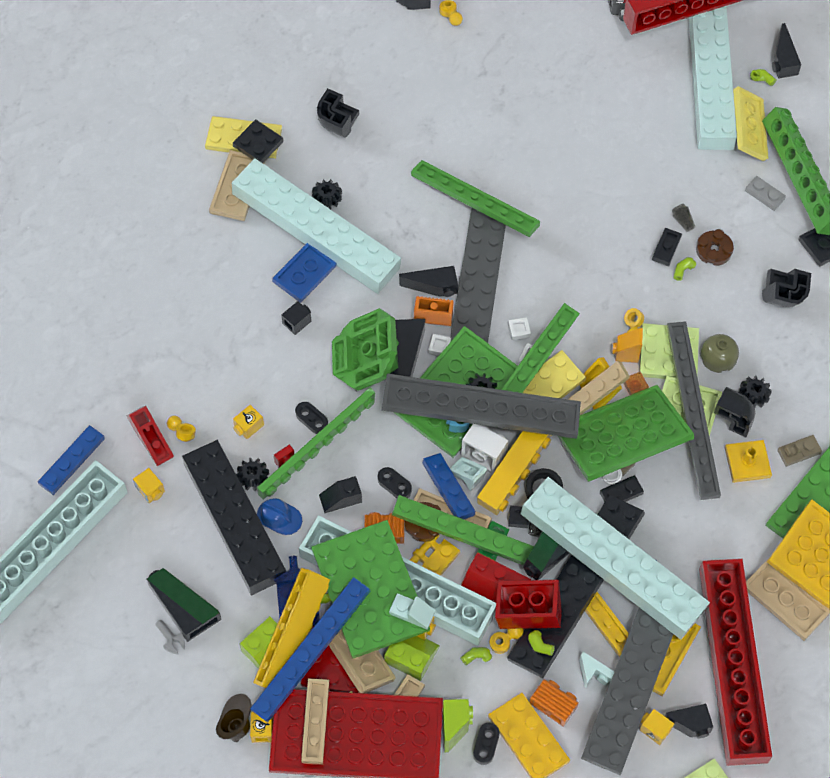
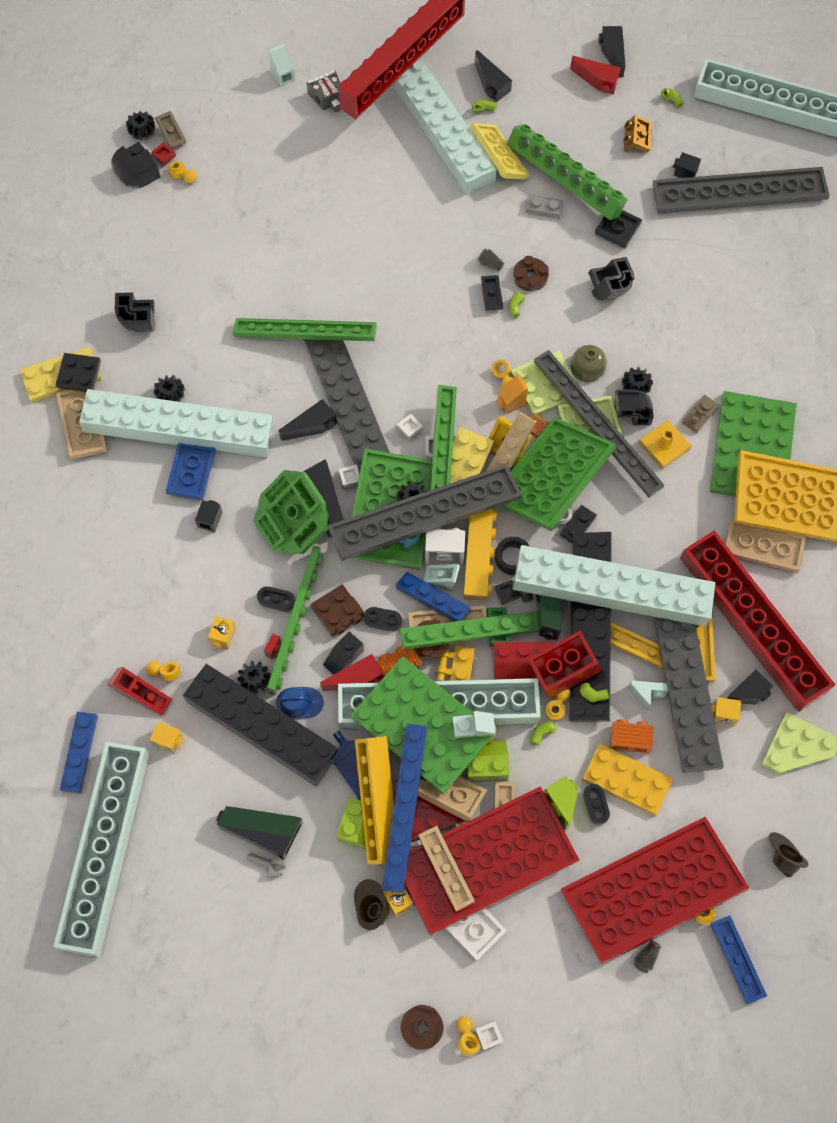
camera: 30 degrees left, 5 degrees up
(348, 517) = (363, 671): none -> red slope
(359, 455) = (337, 610): none -> reddish brown plate
(434, 310) = (328, 447): orange brick -> none

